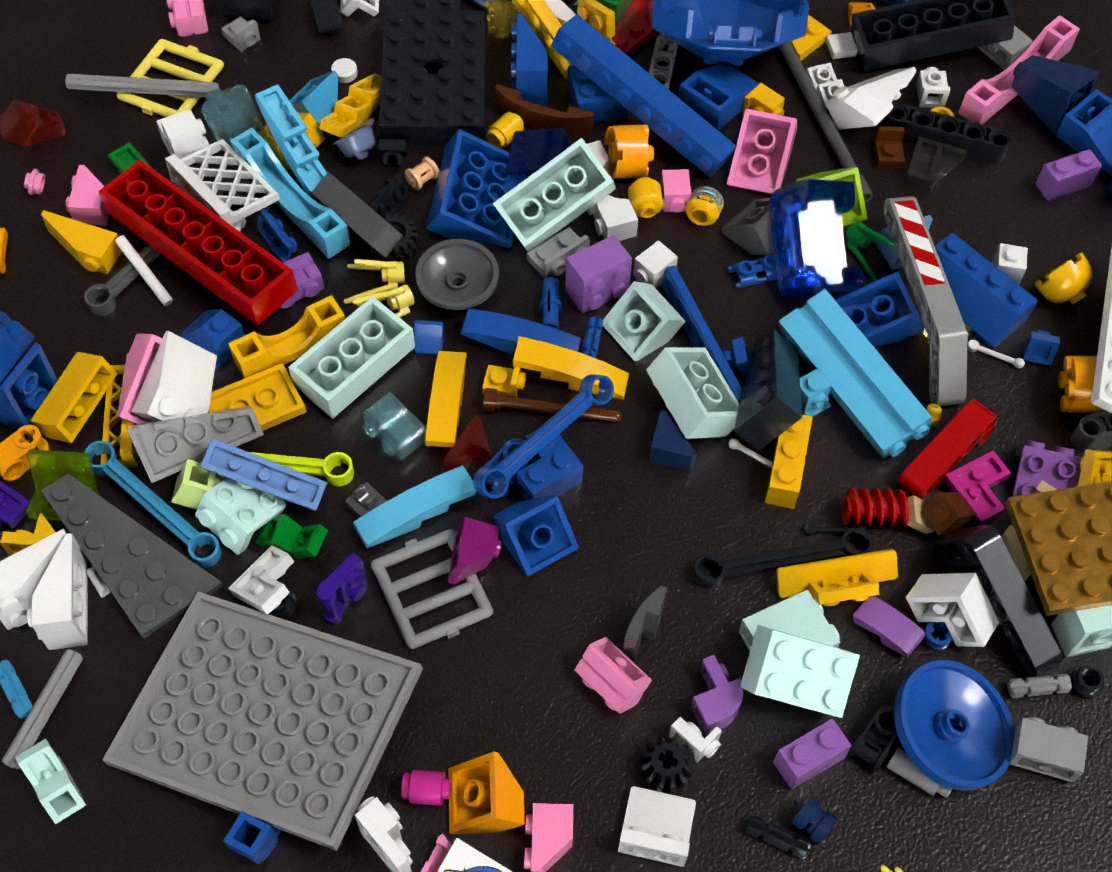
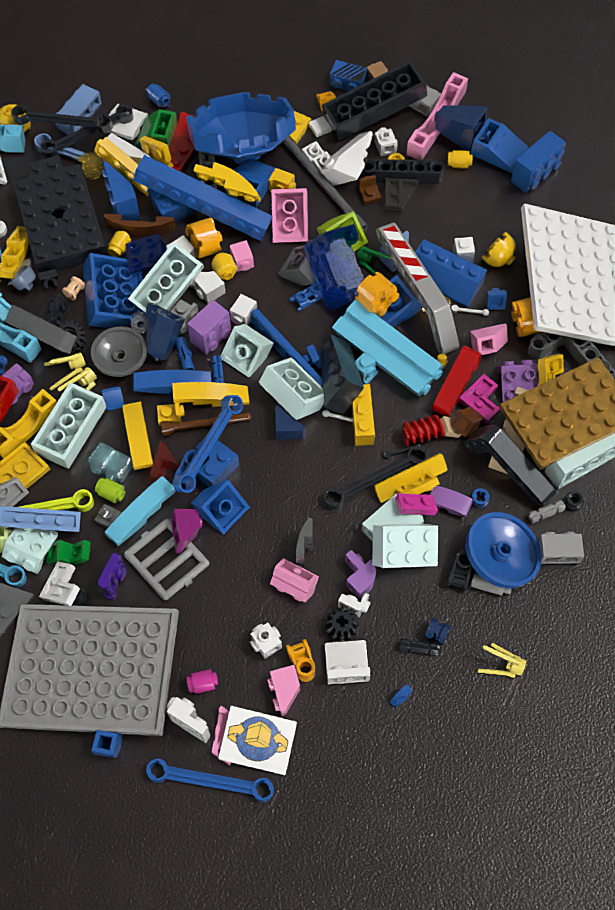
camera: 15 degrees left, 5 degrees up
(381, 465) = (110, 490): none -> lime brick
(484, 797) = (239, 676): light orange slope -> none
(506, 235) = (138, 316): none -> clear brick
(527, 261) = (162, 331): none -> dark blue slope
(542, 753) = (265, 640): none -> white brick
(588, 797) = (301, 657): none -> light orange piece
(691, 81) = (231, 180): none -> yellow slope
(704, 206) = (263, 261): yellow head -> none
(812, 754) = (425, 592): medium lavender brick -> none
(834, 614) = (416, 504): none -> dark pink plate
(860, 289) = (377, 294): none -> light orange brick
(958, 602) = (485, 475): white brick -> none
(1016, 401) = (489, 339): none -> bright pink slope
(1037, 138) = (459, 159): none -> yellow brick
(1068, 175) = (485, 179): medium lavender brick -> none

